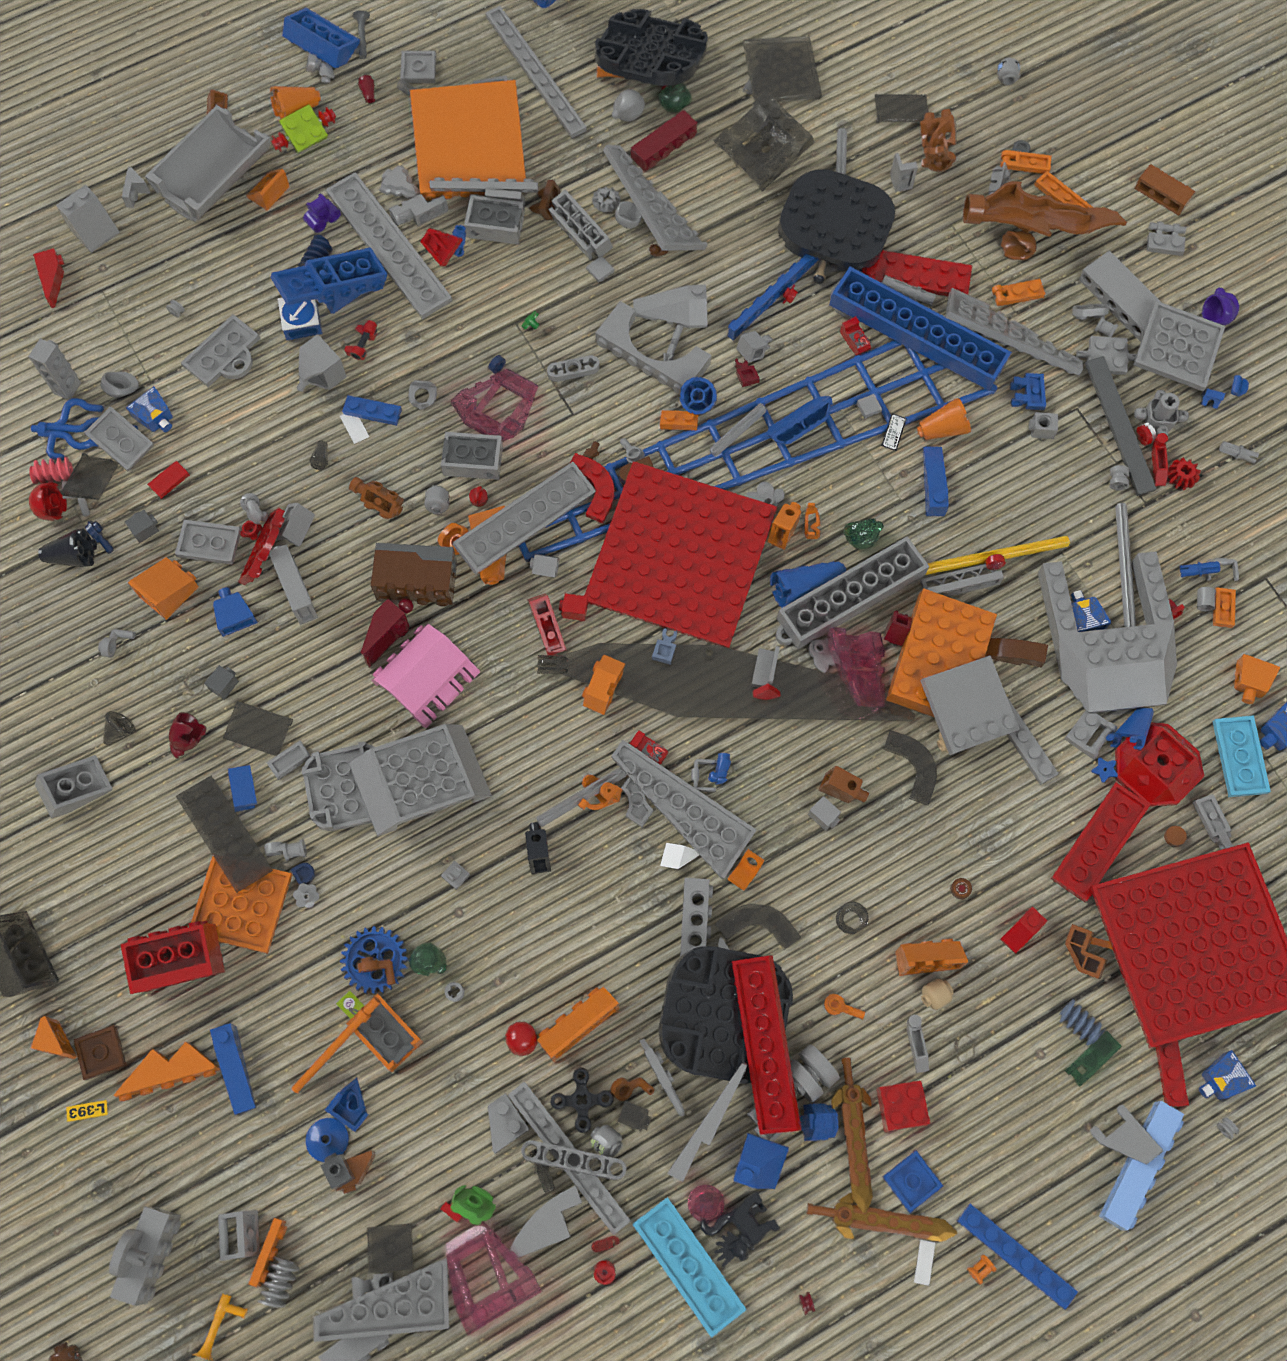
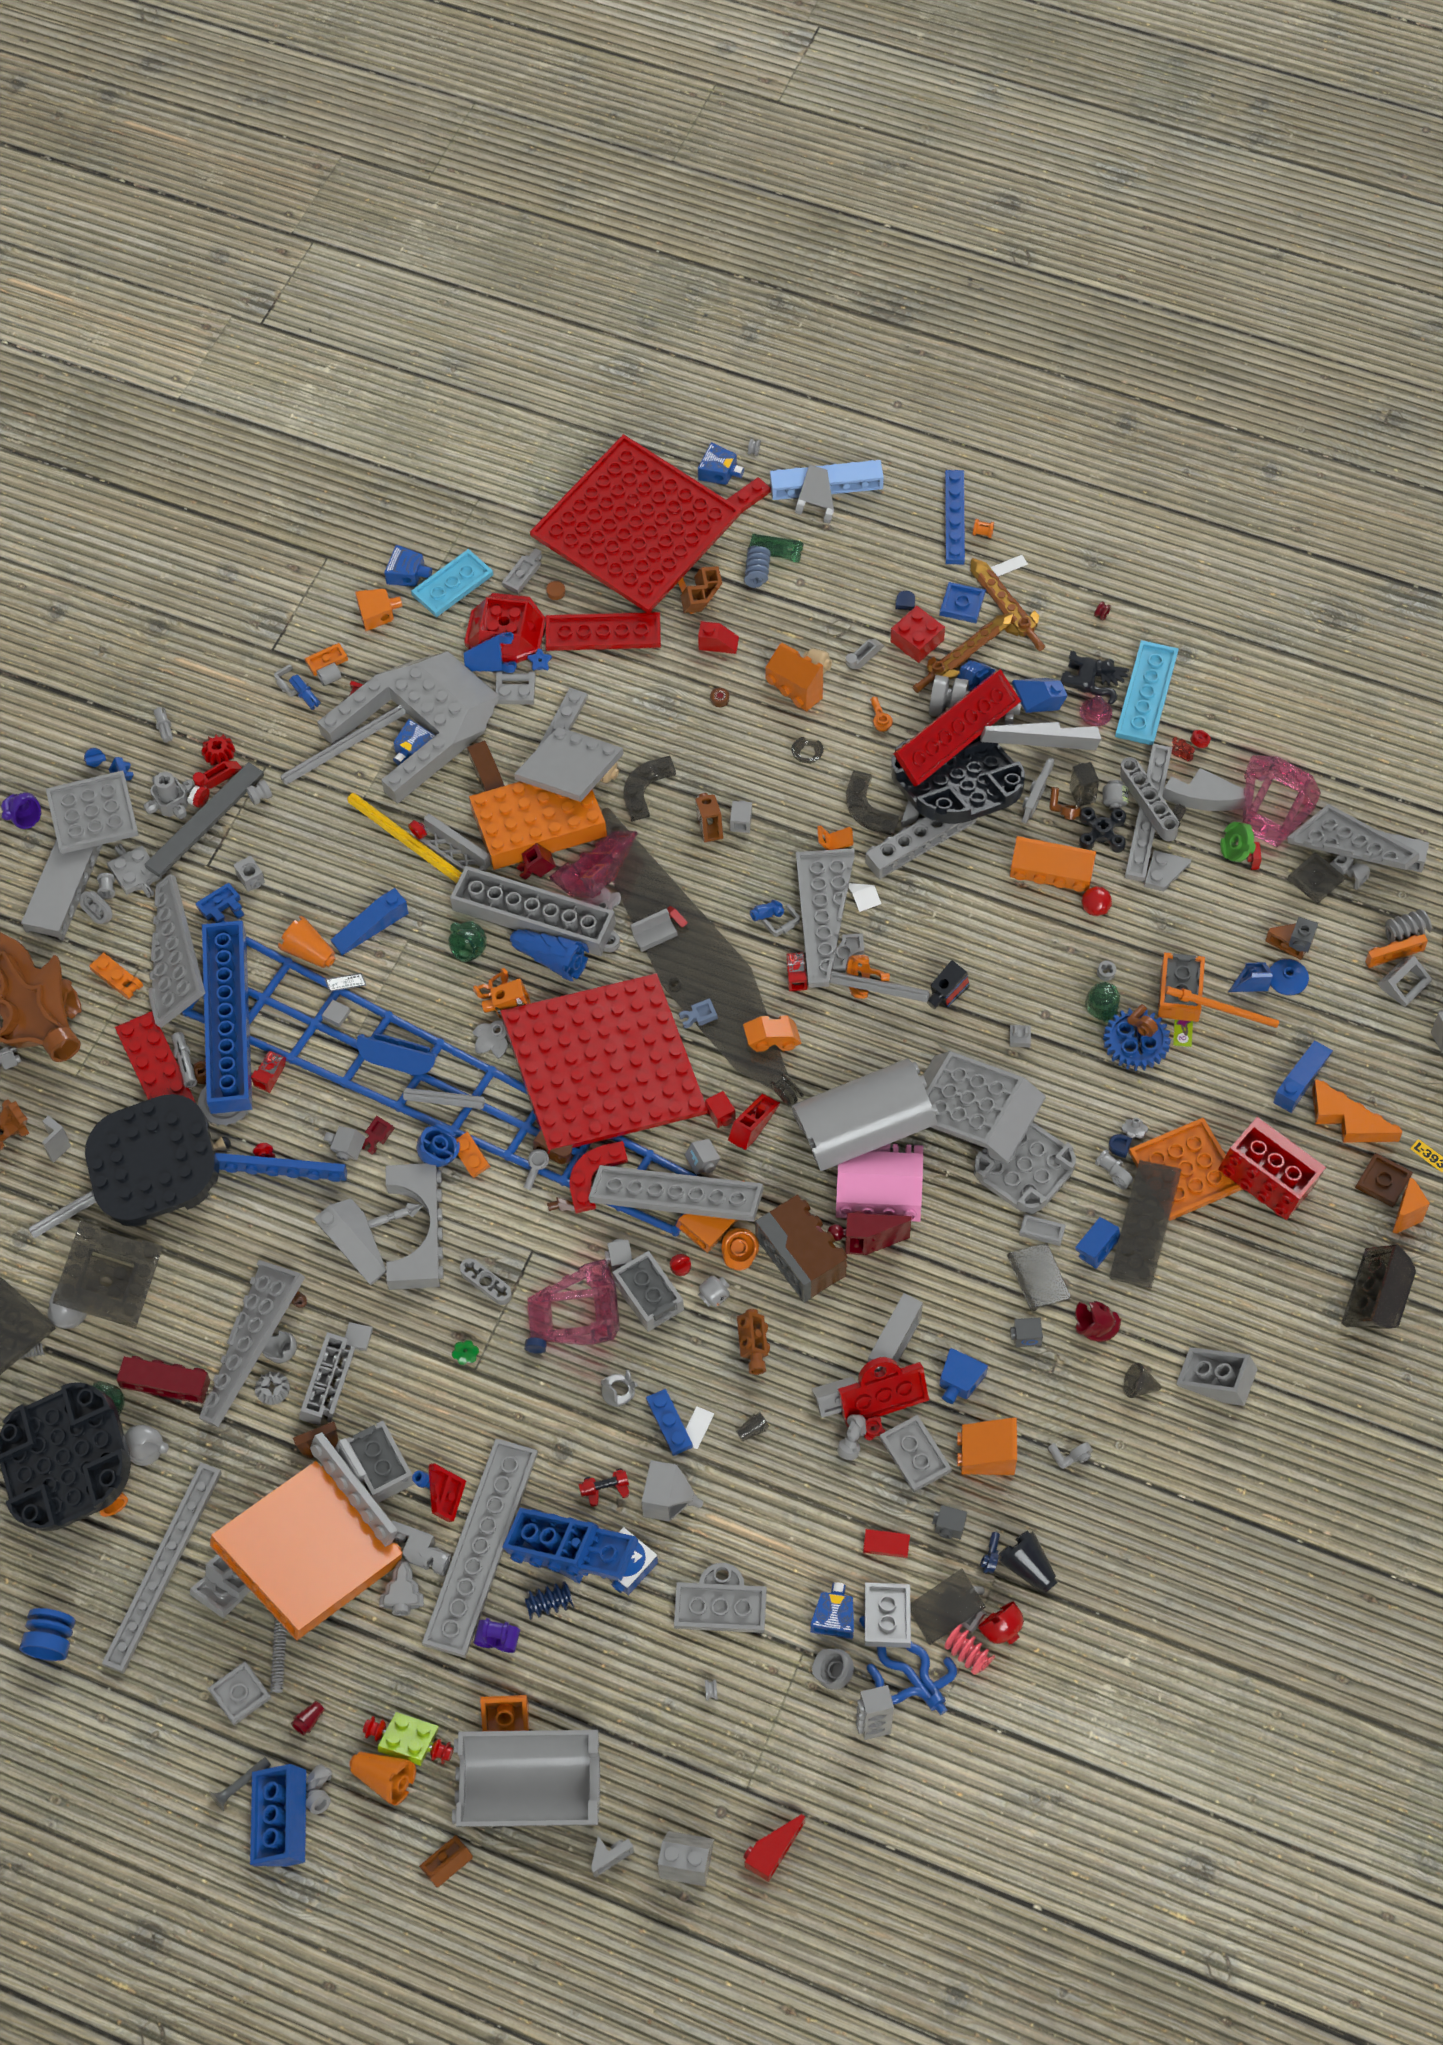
camera: 125 degrees left, 10 degrees down
(477, 689) = (865, 1113): none -> light grey cylinder
(516, 459) = (618, 1253): none -> light grey brick
(951, 1130) = (905, 600): none -> dark blue tile

